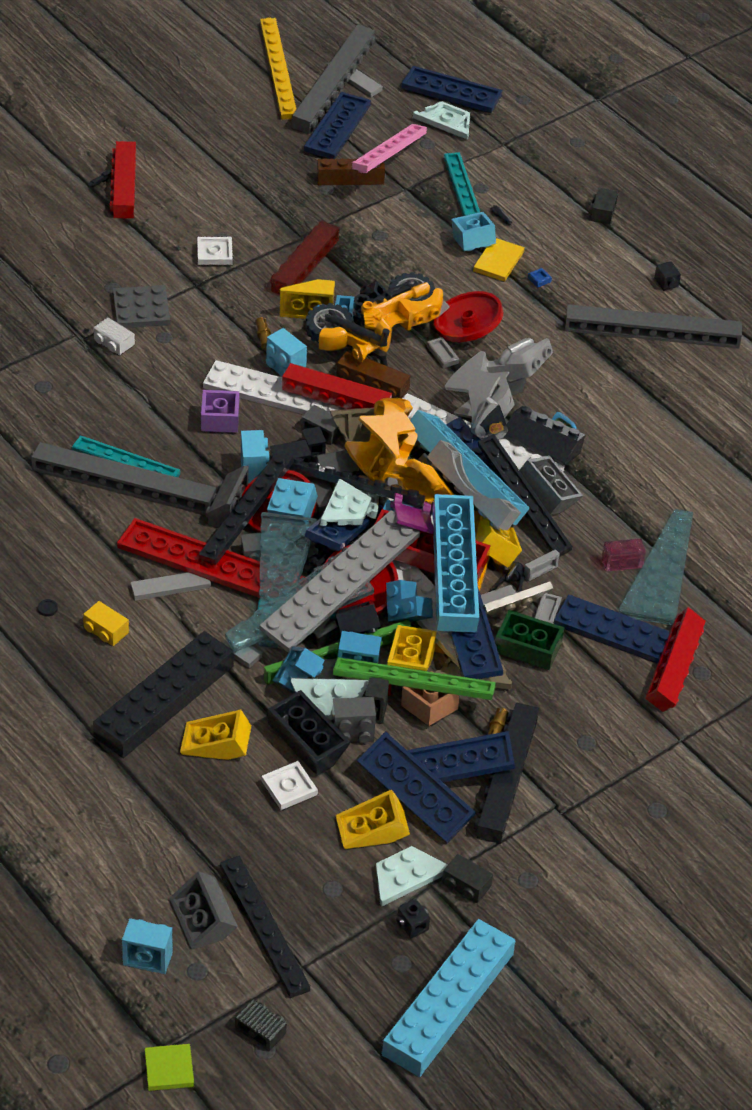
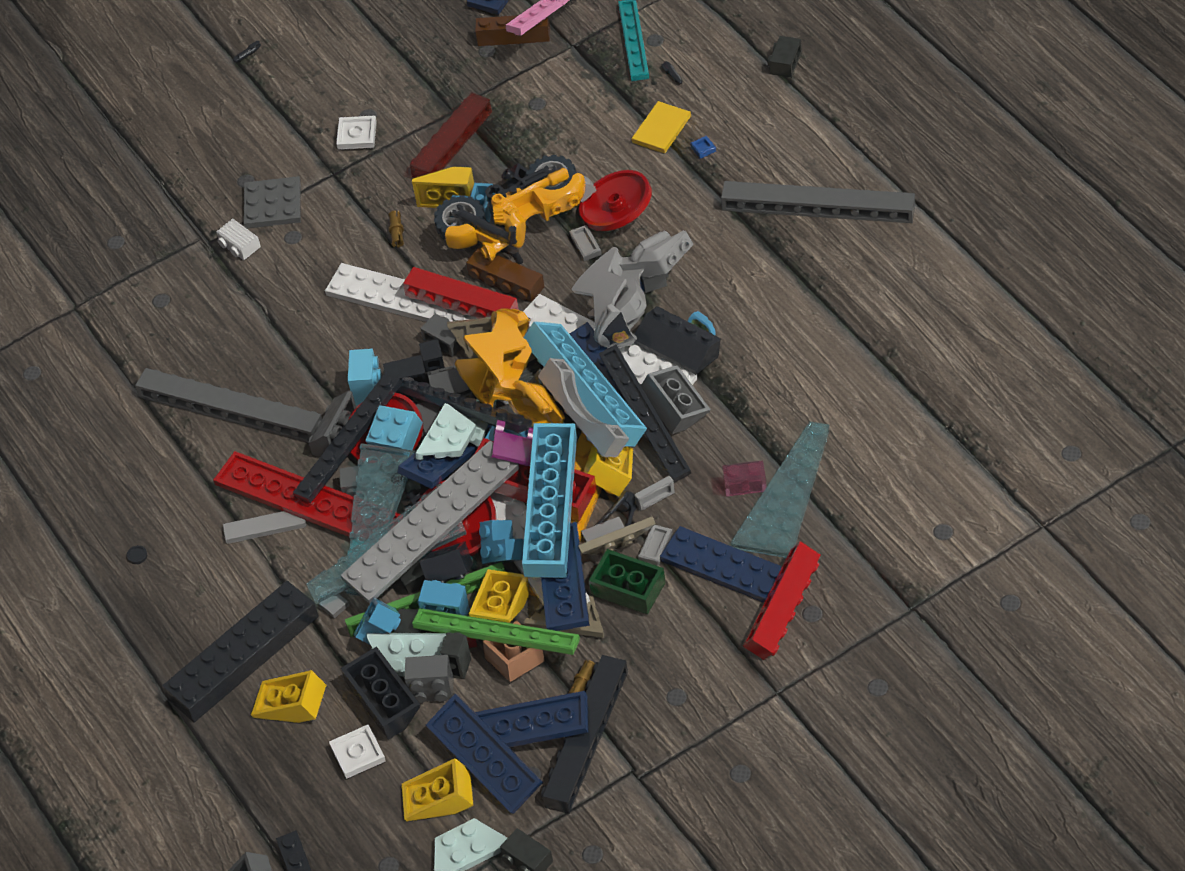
camera: 15 degrees right, 5 degrees up
(105, 451) = (235, 382): teal tile -> none
(106, 623) = (191, 572): yellow brick -> none
(124, 174) = (270, 52): red brick -> none
(220, 411) = (337, 324): medium lavender brick -> none
(283, 350) = (412, 252): medium azure brick -> none
(473, 231) = (635, 96): medium azure brick -> none
(667, 275) = (843, 139): black brick -> none

